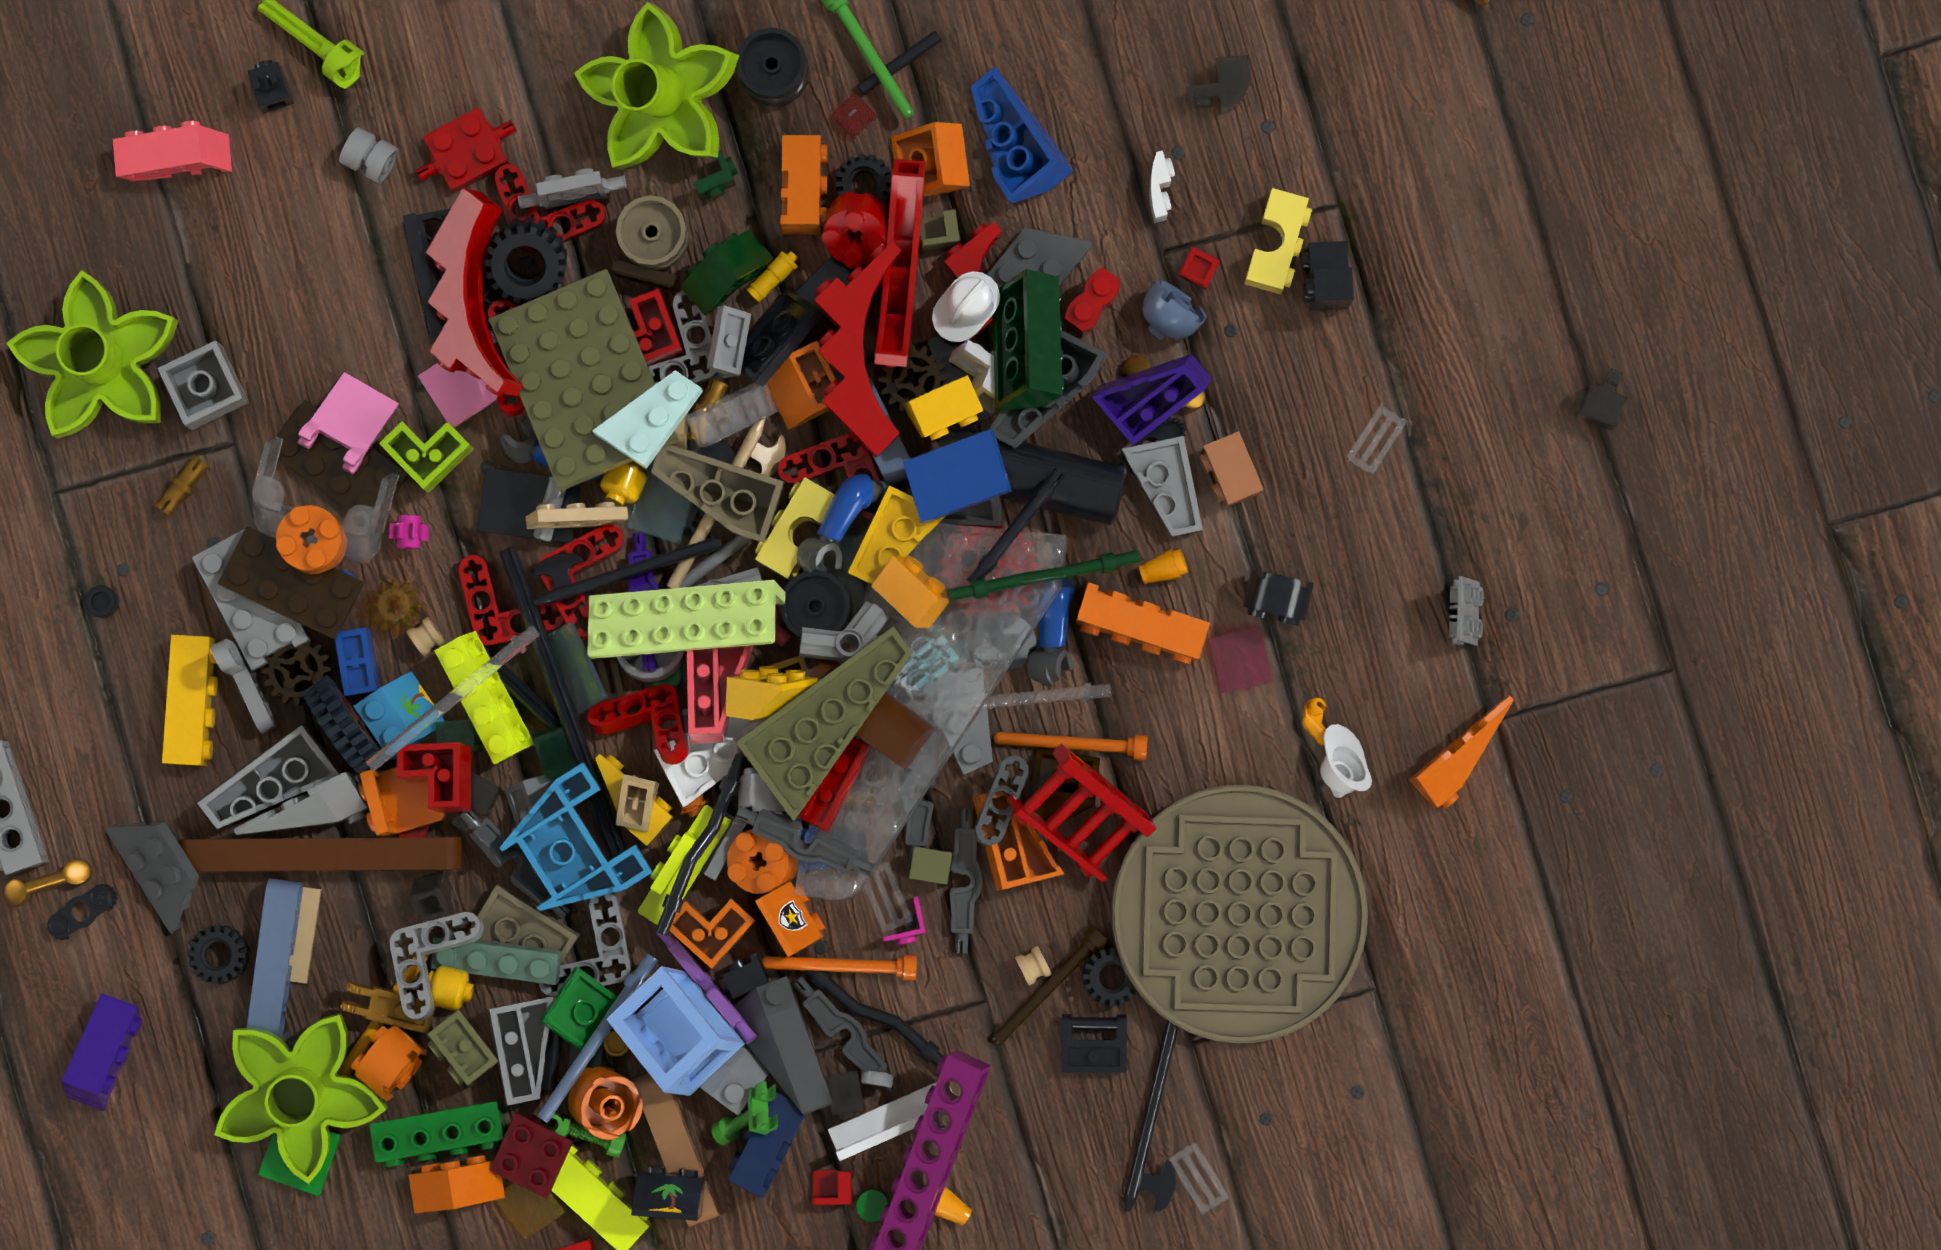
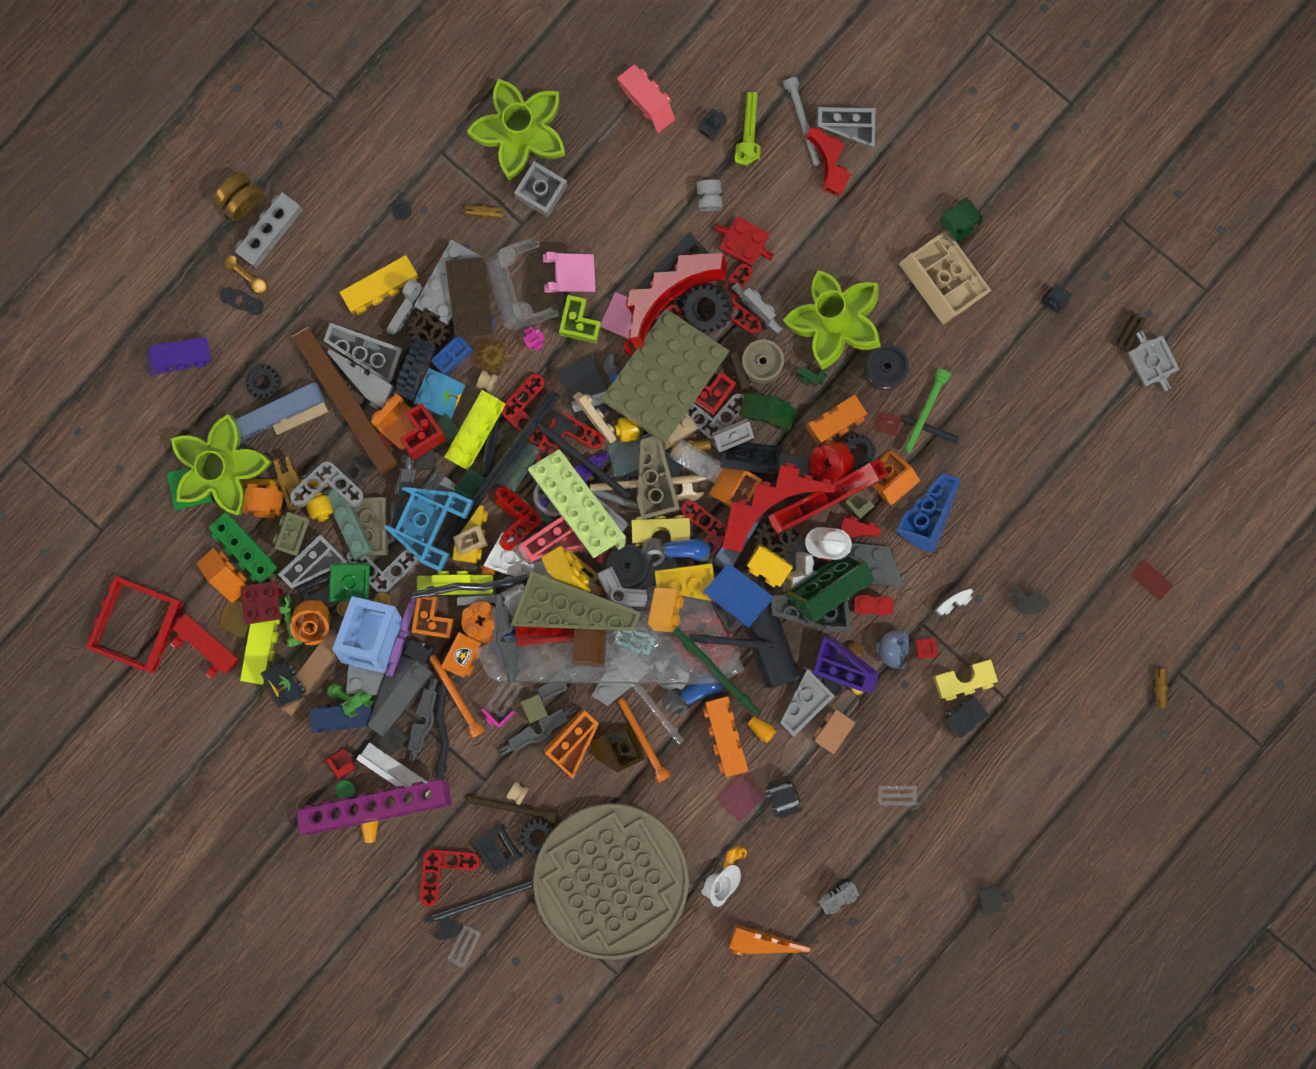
camera: 55 degrees right, 0 degrees up
(158, 867) = (287, 324): dark grey wing -> none
(305, 522) = (486, 288): orange brick -> none
(517, 645) = (463, 415): clear bar -> none
(631, 984) = (378, 597): sand blue bar -> none
(650, 419) = (666, 422): light aqua wing -> none
(772, 276) = (781, 435): yellow piece -> none
(876, 1078) = (409, 751): light grey tile -> none
(1002, 775) = (604, 726): dark grey beam -> none
(1063, 1134) = (442, 863): none -> red beam
(1090, 784) = (626, 763): red fence -> none

